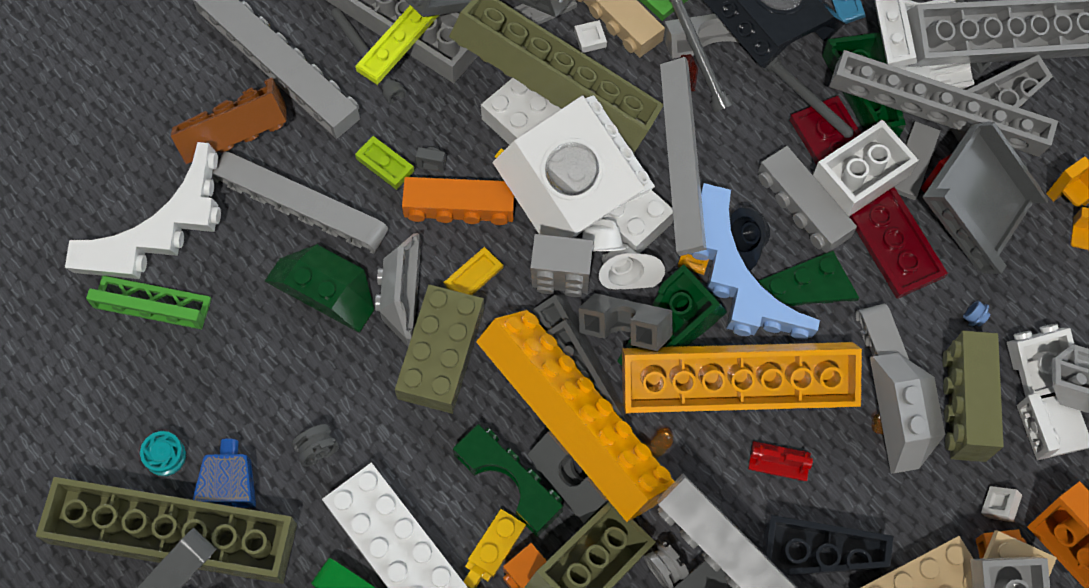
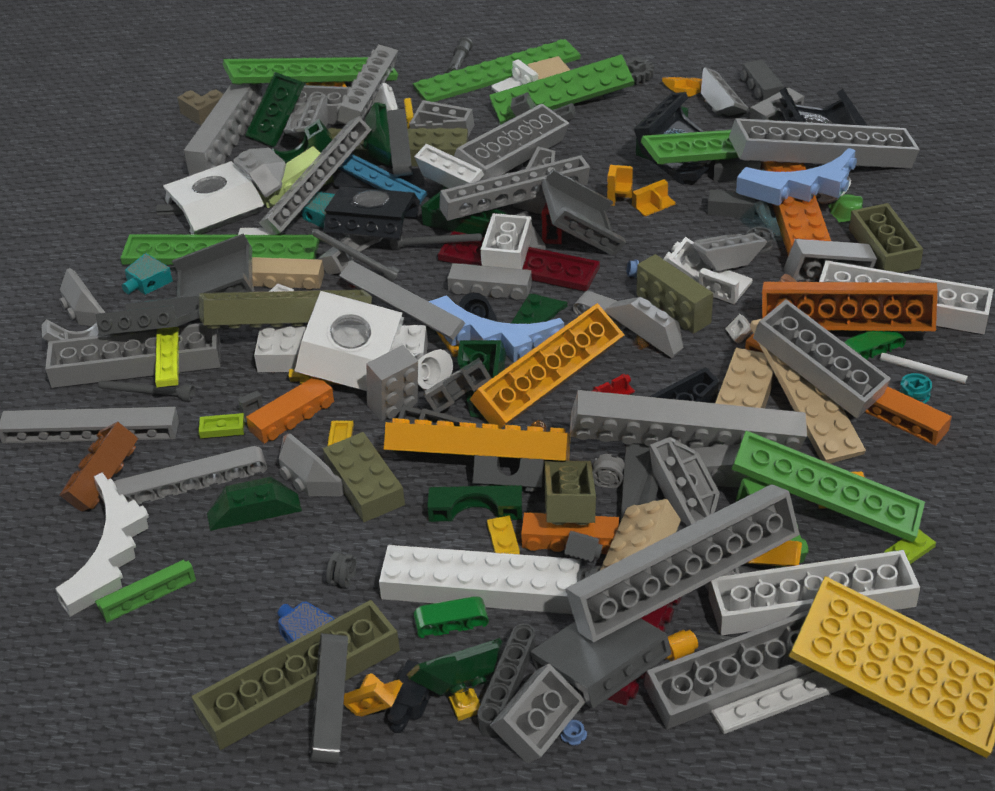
camera: 40 degrees left, 25 degrees down
(164, 454) = (246, 647): teal wheel -> none

